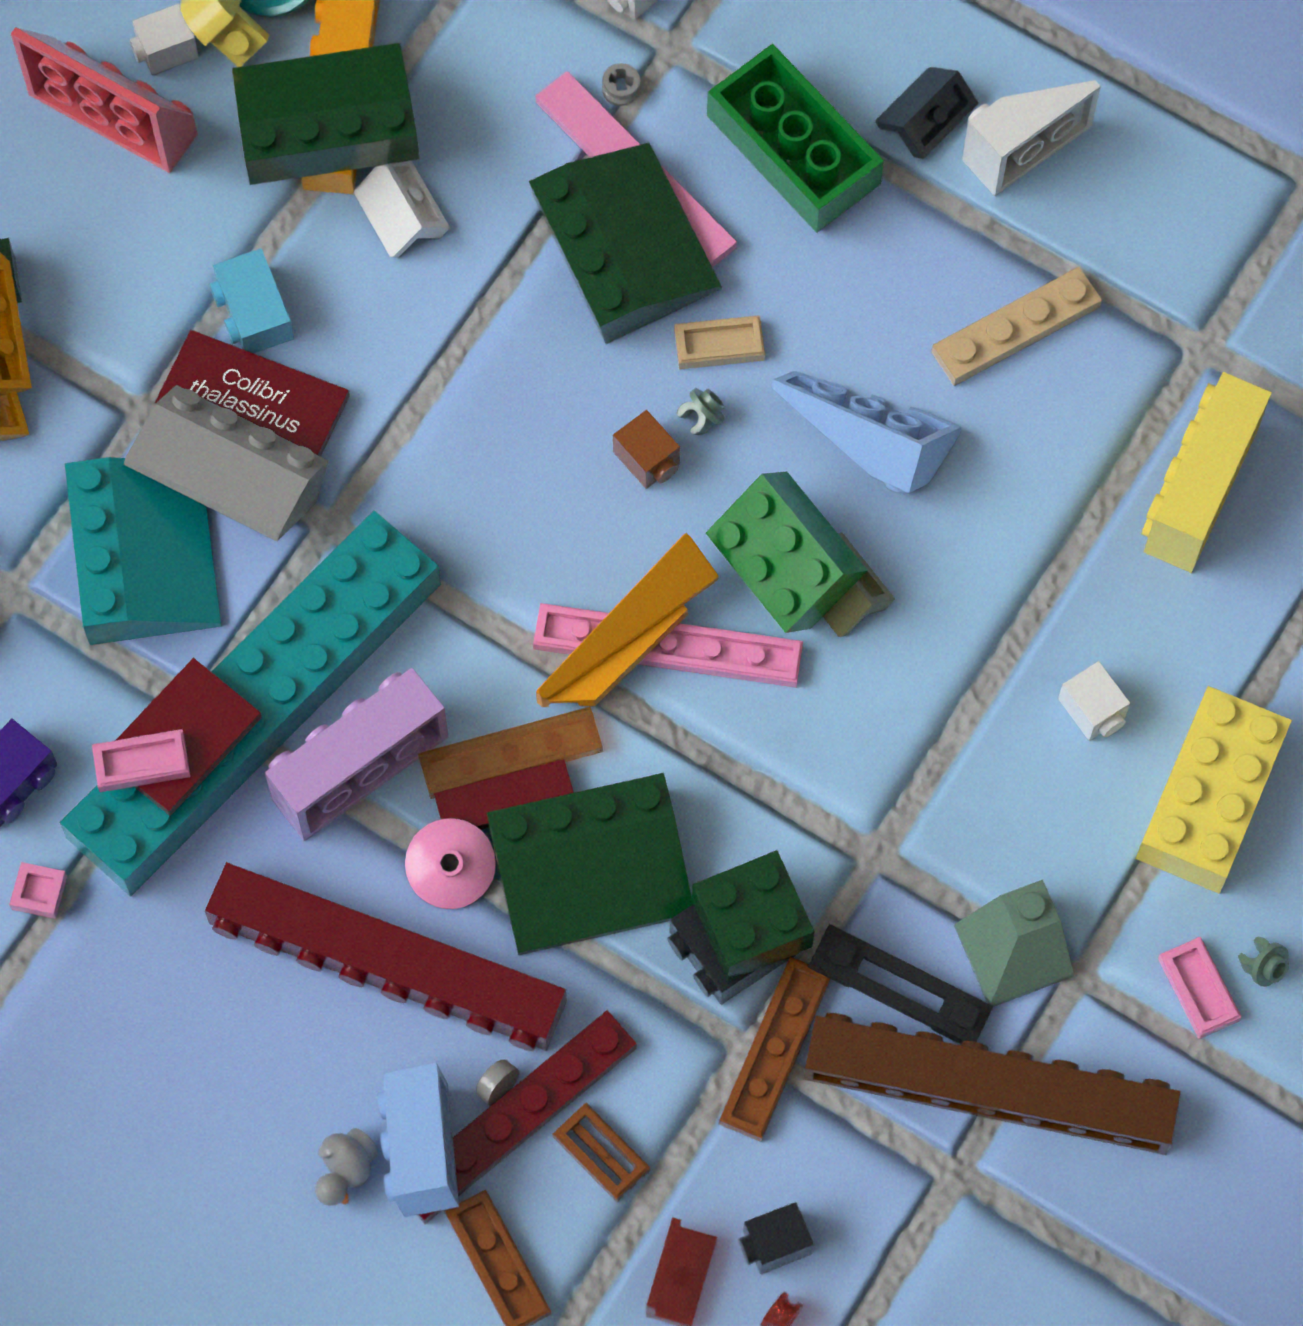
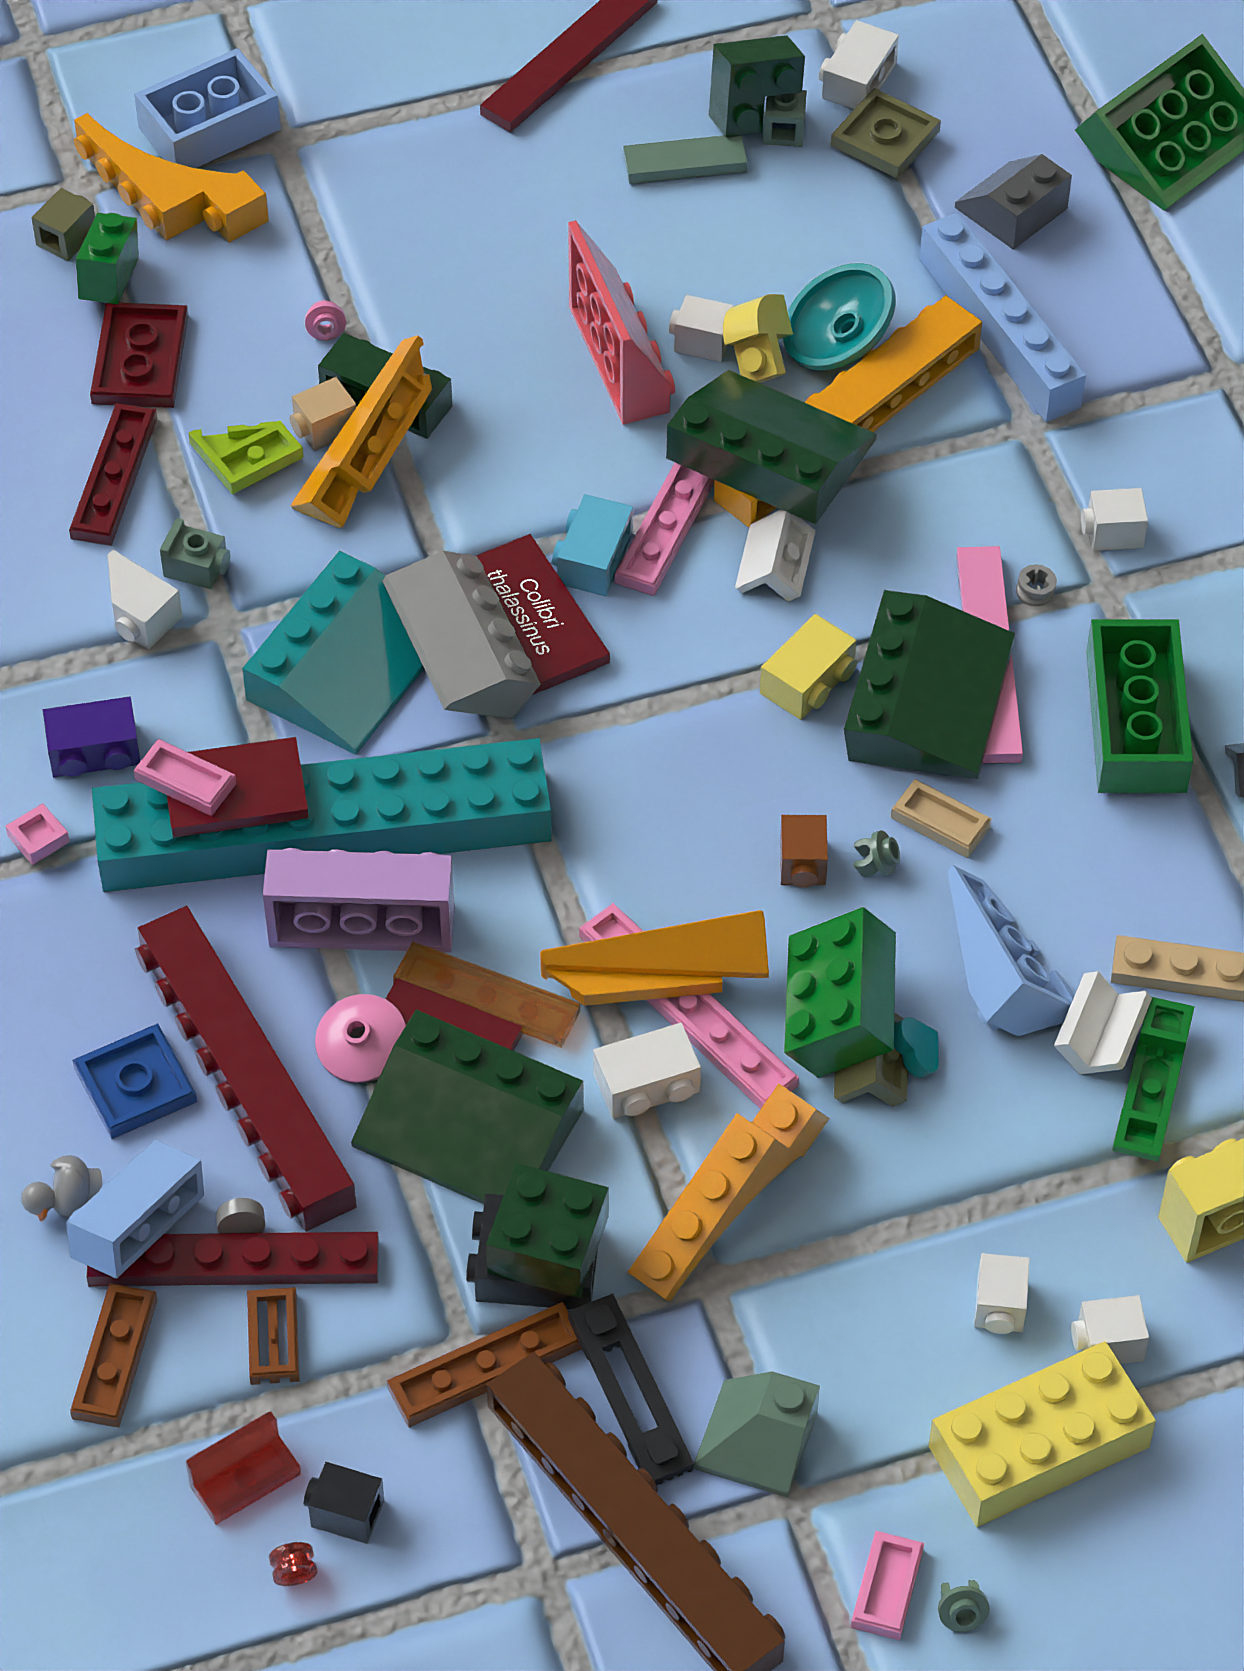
camera: 40 degrees right, 15 degrees down
(285, 237) = (663, 530): none -> bright pink tile
(307, 1034) = (134, 1081): none -> blue tile
(514, 287) = (808, 667): none -> light yellow brick
(691, 724) = (647, 1071): none -> white brick
(836, 776) = (724, 1184): none -> light orange arch
(870, 549) = (917, 1045): none -> teal tile
(988, 429) = (1101, 1025): none -> white panel
(1056, 448) = (1153, 1079): none -> green slope
(1192, 669) = (1117, 1322): none -> white brick

